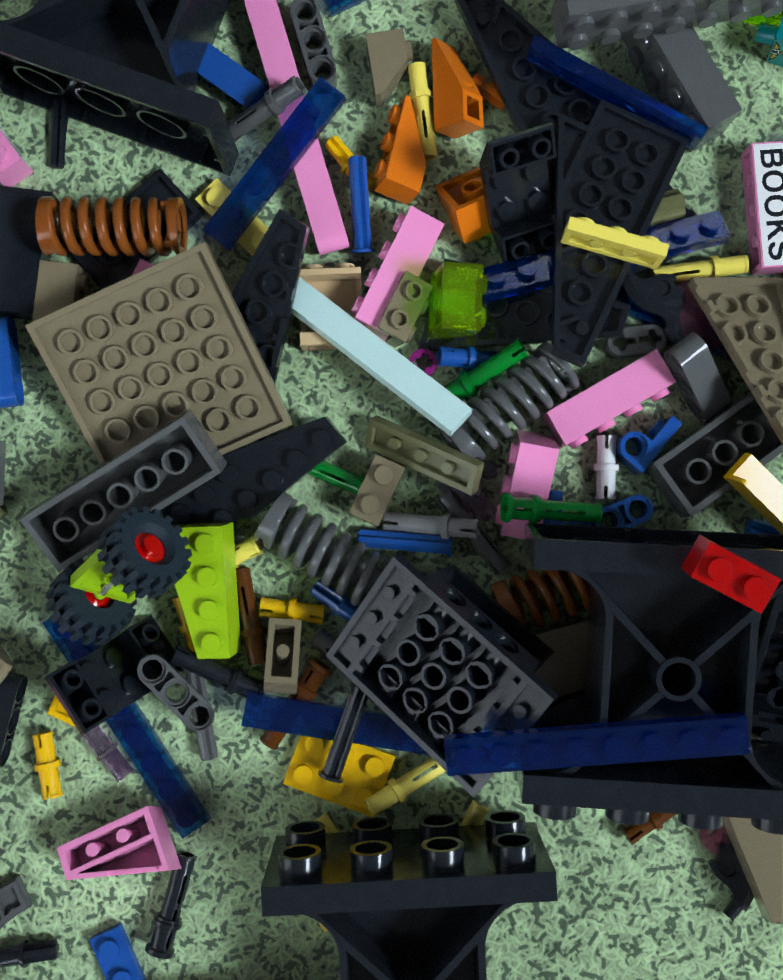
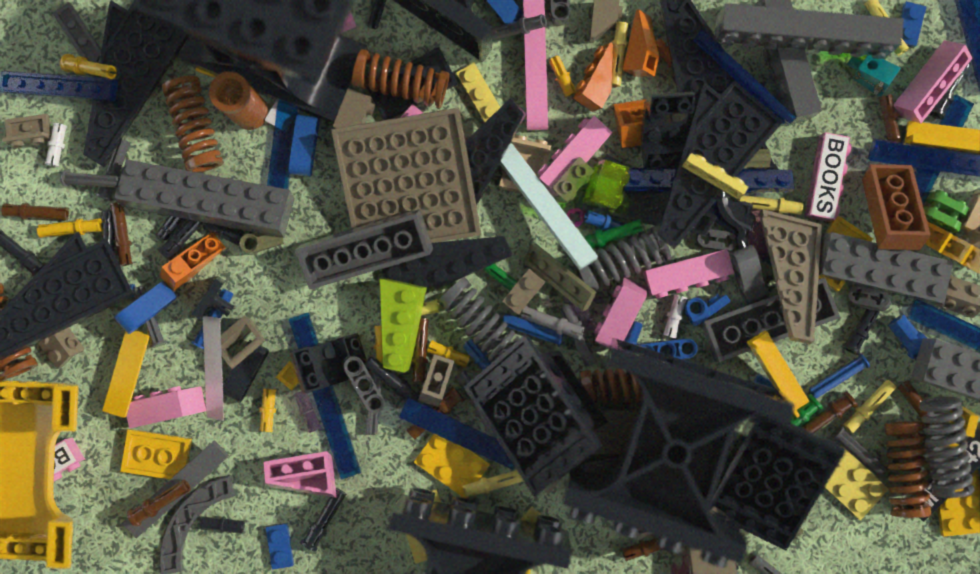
camera: 25 degrees right, 0 degrees up
(133, 559) = (363, 294): black plate -> none
(275, 163) = (514, 65): clear blue tile -> none
(344, 736) = (462, 440): black axle -> none
(360, 205) = (561, 105): blue axle -> none
(535, 506) = (619, 331): green pin -> none
(597, 744) = (617, 480): clear blue plate -> none
(730, 574) = (722, 397): red brick -> none

